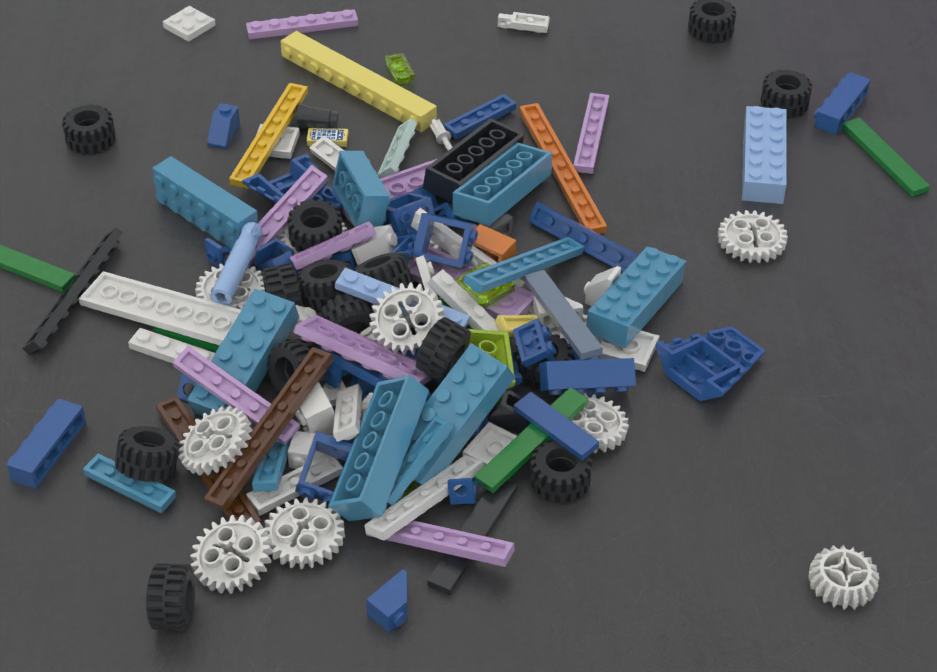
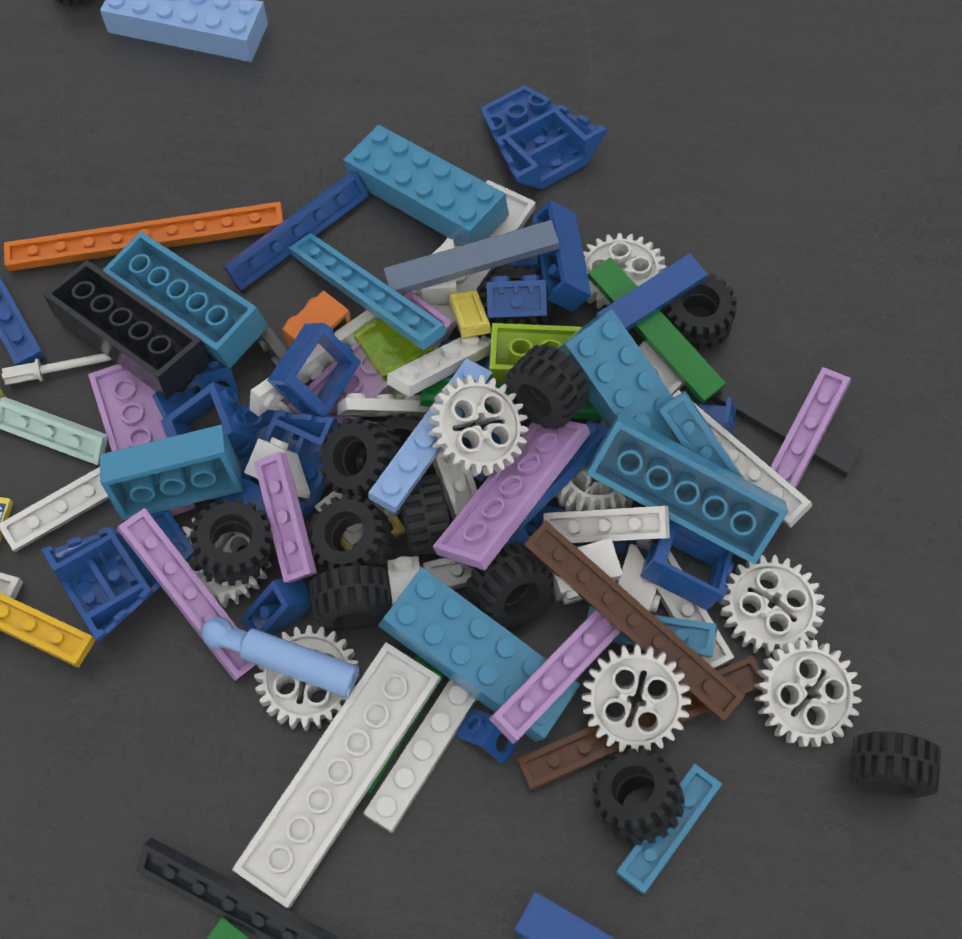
camera: 80 degrees left, 20 degrees up
(201, 201) = (121, 705): dark azure brick -> none
(215, 252) = (230, 696): blue bracket -> none
(270, 250) = (237, 611): blue bracket -> none
(389, 602) = (881, 512): blue slope -> none
(591, 133) = (82, 191): lavender plate -> none
(599, 284) = (402, 219): white slope -> none
(766, 233) = (330, 59): white gear -> none
(843, 577) = (856, 85): white gear -> none

